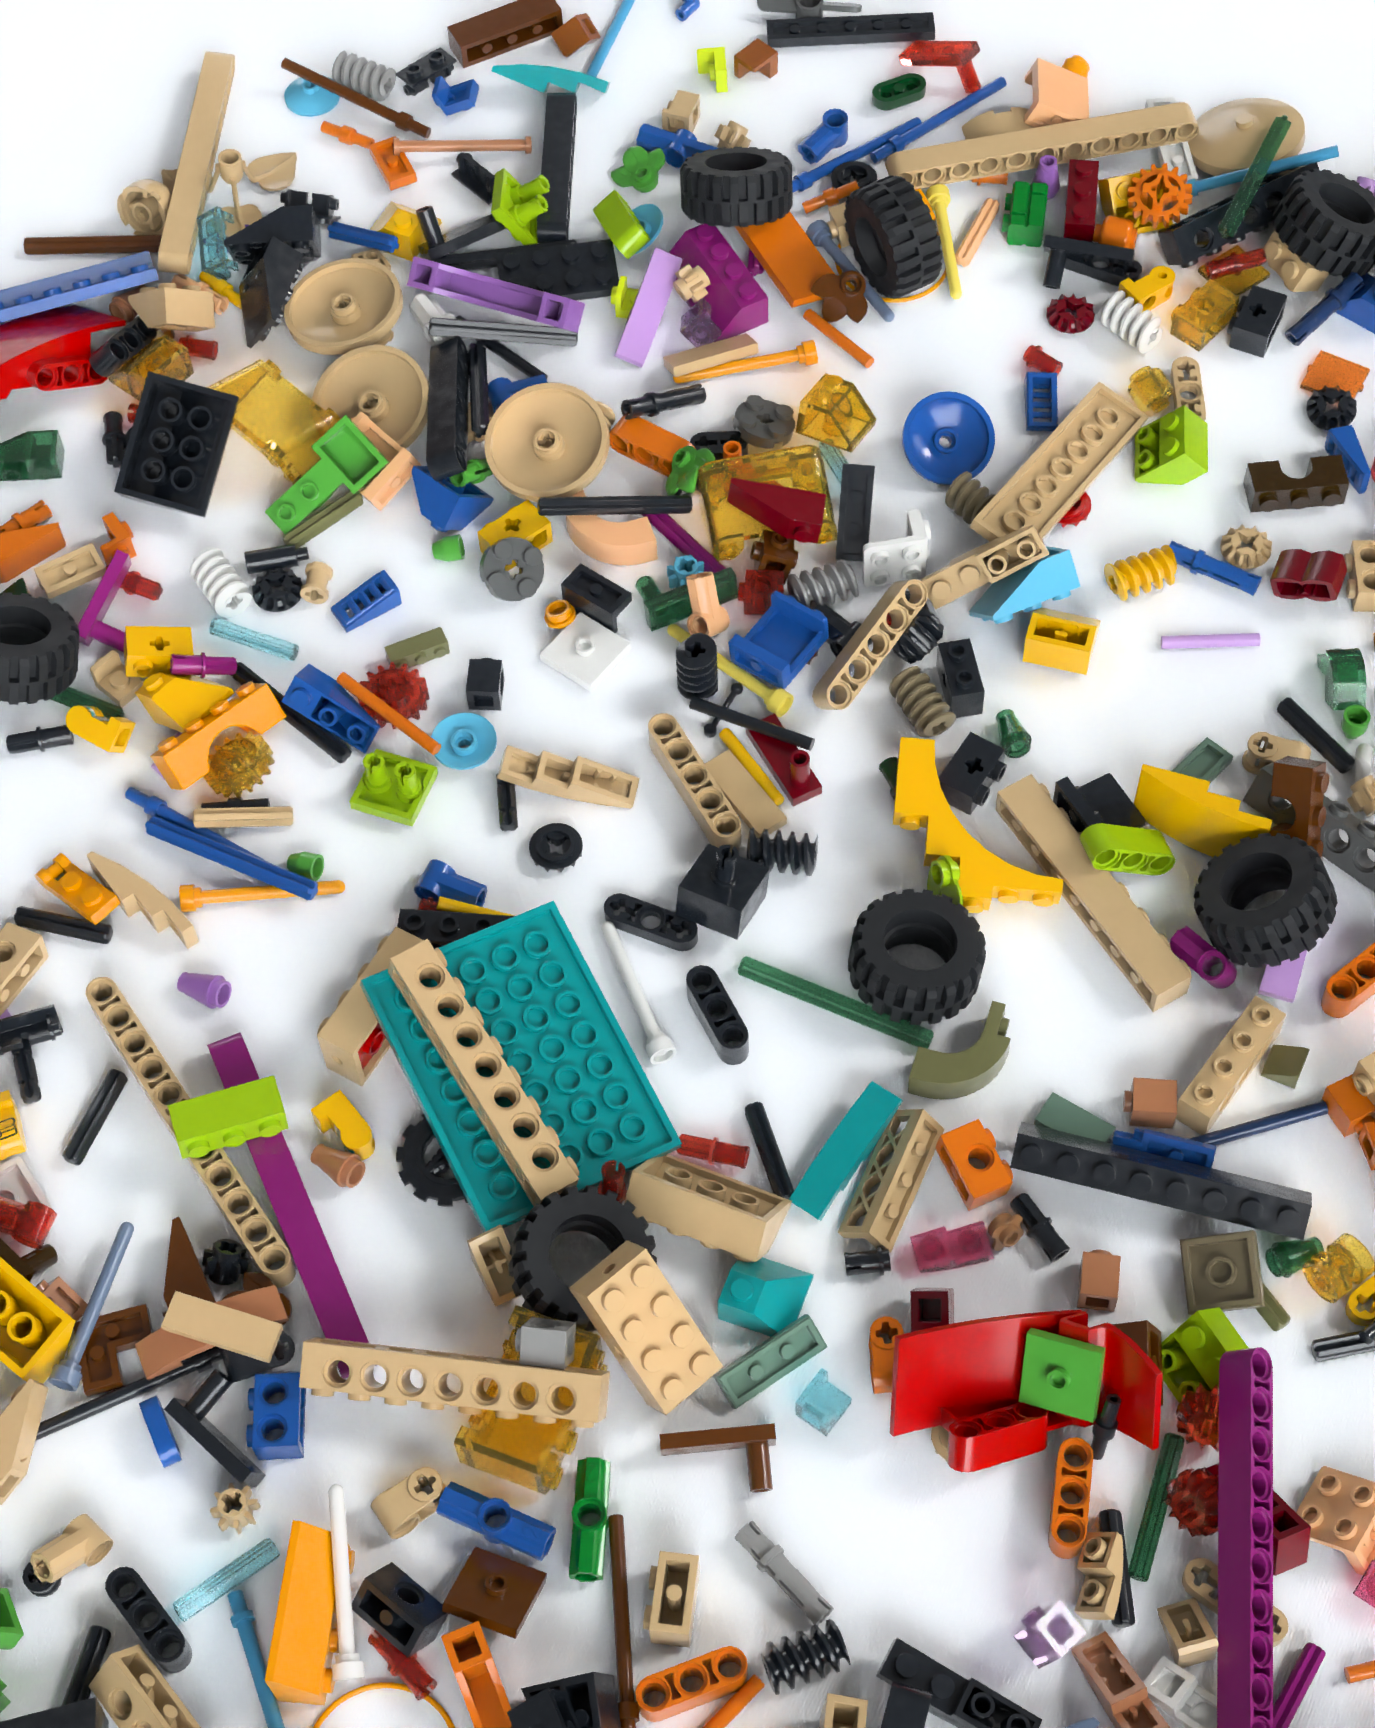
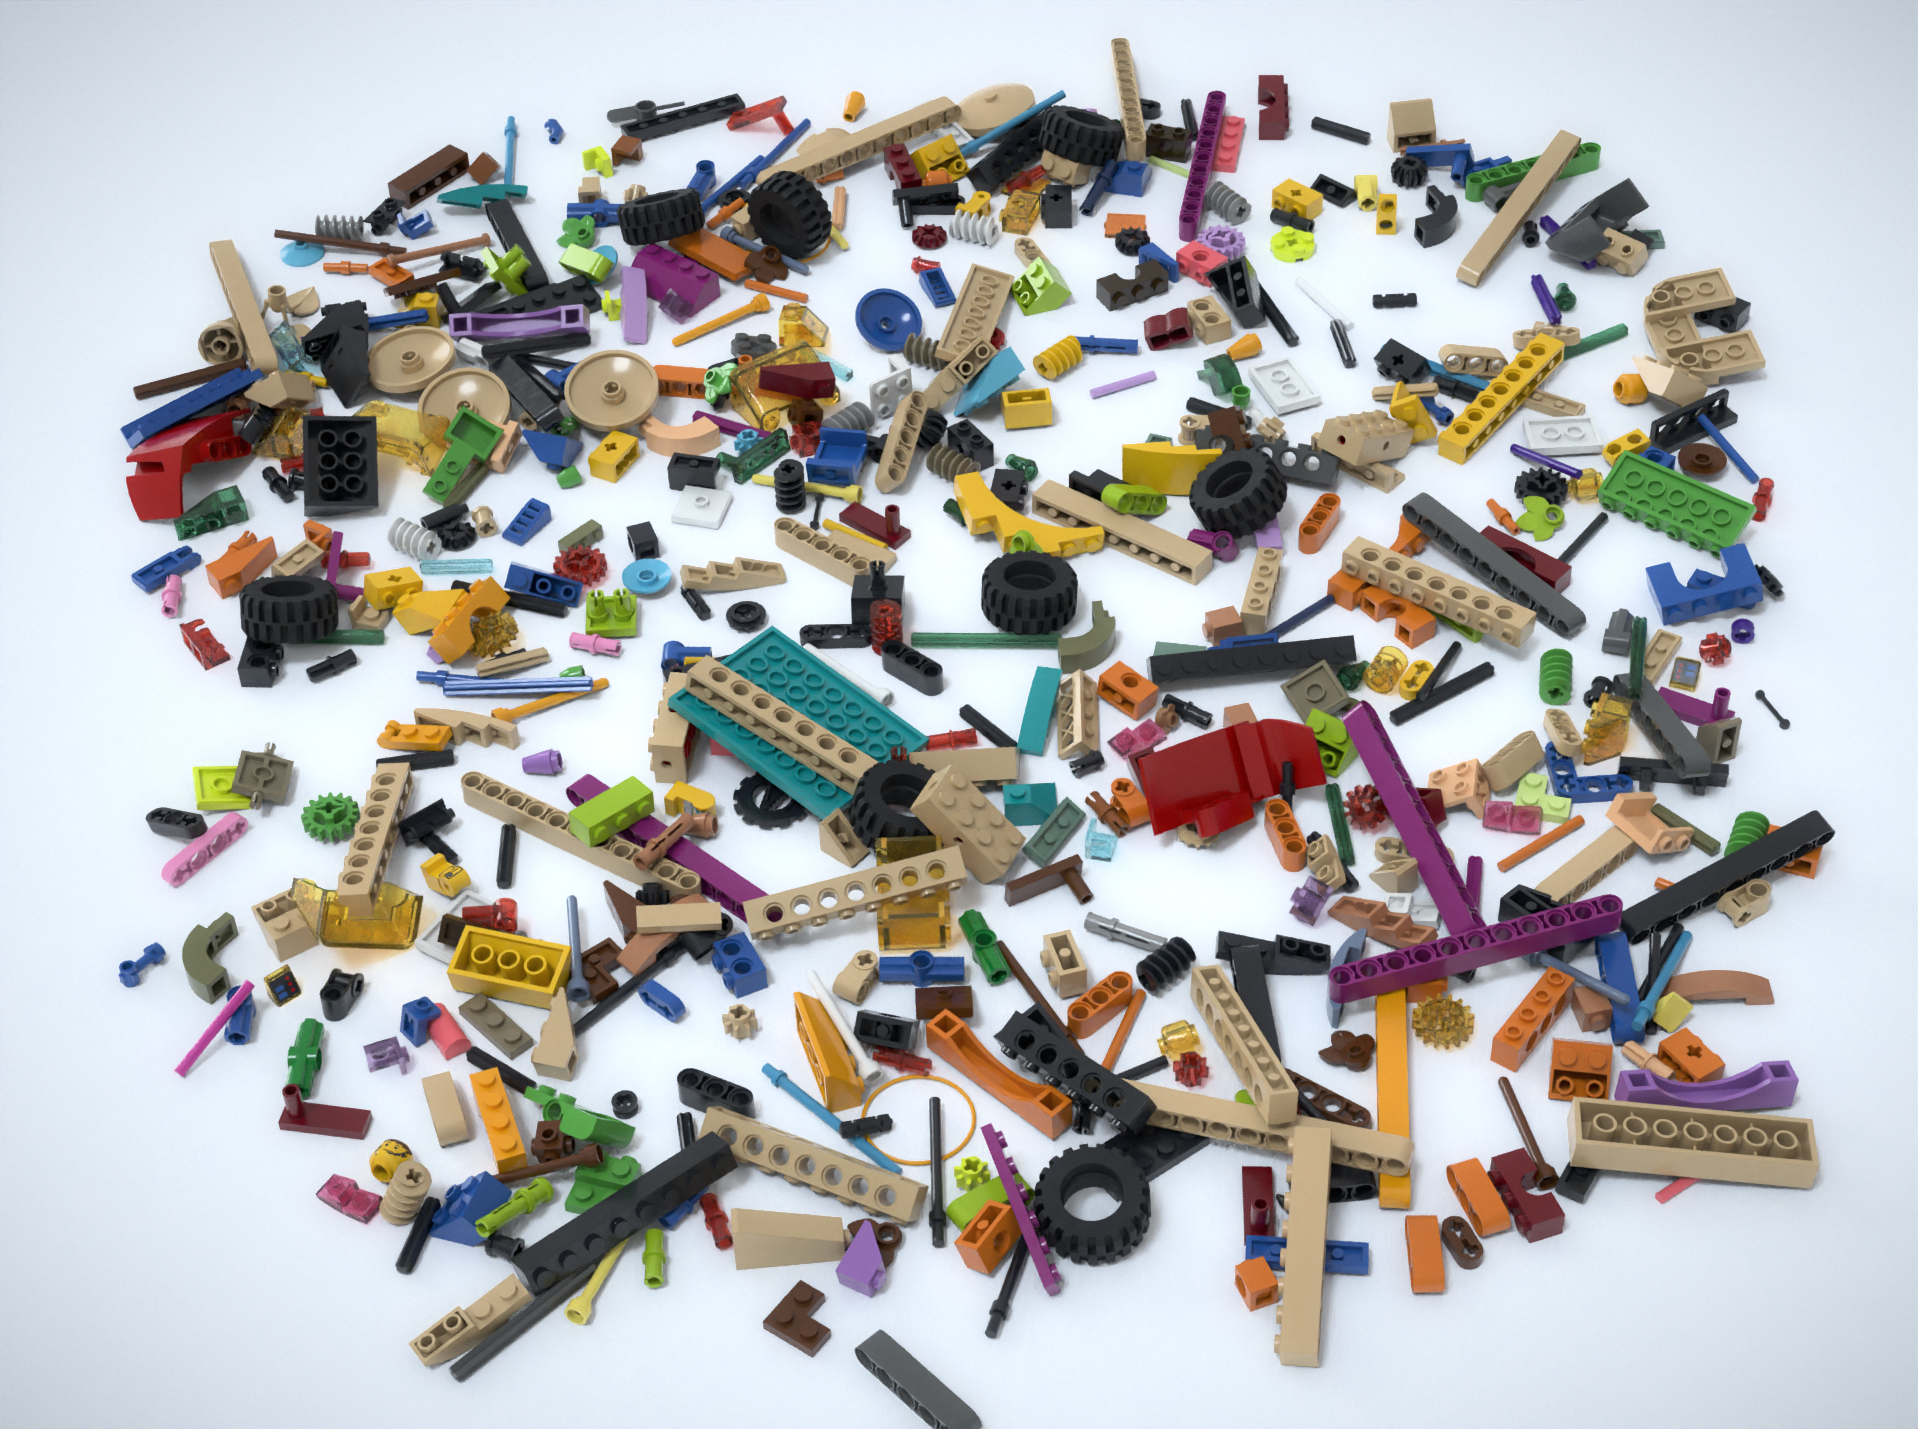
camera: 25 degrees left, 15 degrees down
(79, 1544) = (640, 1075): tan piece -> none
(105, 733) = (374, 644): yellow leg -> none
(192, 1418) = (696, 990): black piece -> none
(202, 665) = (433, 583): magenta axle -> none
(226, 1579) = (758, 1058): clear light blue axle -> none
(231, 1208) = (657, 847): none -> nougat pin
(354, 823) = (595, 643): none -> bright pink pin
(388, 713) = (586, 572): orange bar -> none
(419, 191) = (420, 284): none -> reddish brown wing
(528, 561) = (635, 466): dark grey plate -> none
(546, 1343) = (908, 845): light grey brick -> none
(559, 614) = (671, 490): light orange plate -> none
(614, 505) = (678, 415): black axle -> none
(653, 403) = (672, 354): black pin -> none
(691, 283) = (659, 280): tan gear -> none
(707, 614) = (772, 449): light nougat piece -> none
(709, 939) = (885, 623): none -> clear red piece
(710, 355) = (693, 321): tan tile -> none
(752, 723) = (840, 509): black bar -> none
(783, 851) = (909, 567): black piece -> none
(854, 511) = (848, 372): black piece -> none
(854, 1360) = (1107, 814): none -> dark orange pin
(898, 91) = (738, 144): dark green plate -> none
(1026, 214) = (868, 188): green brick -> none
(1048, 173) = (870, 166): medium lavender cone -> none
(1057, 95) = (854, 112): light nougat panel -> none
(1062, 1374) = (1248, 761): bright green plate -> none
(1150, 389) = (1008, 260): clear yellow head -> none
(1173, 200) = (958, 149): orange gear -> none
(1199, 1417) = (1341, 758): clear red gear -> none
(1246, 557) = (1123, 328): tan gear -> none
(1254, 177) = (1016, 122): clear green axle -> none
(1285, 1064) = (1295, 583): olive slope -> none

